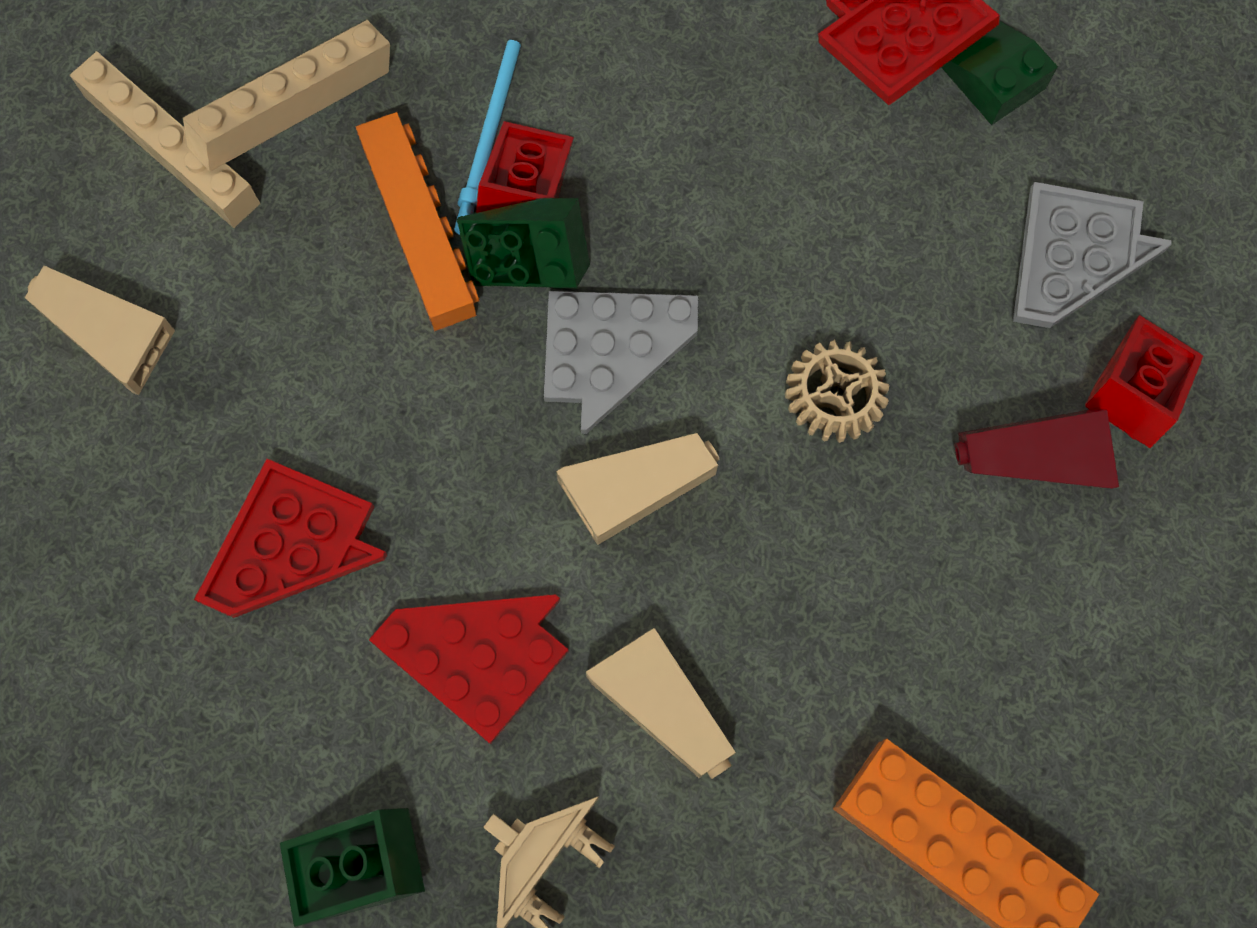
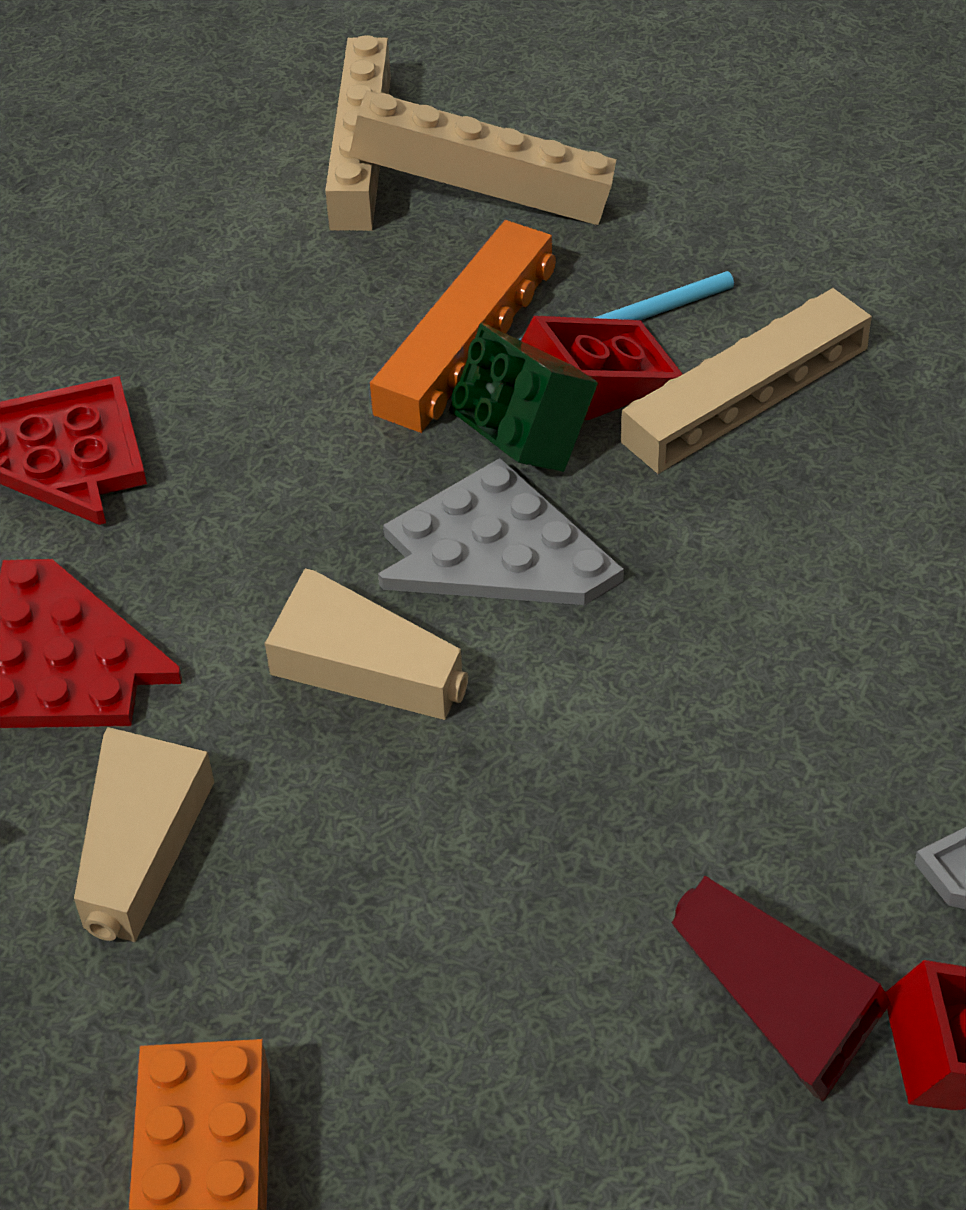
camera: 55 degrees right, 25 degrees down
(109, 329) = (141, 209): tan slope -> none
(613, 109) = (744, 380): none -> tan brick
(828, 363) = (652, 764): tan gear -> none

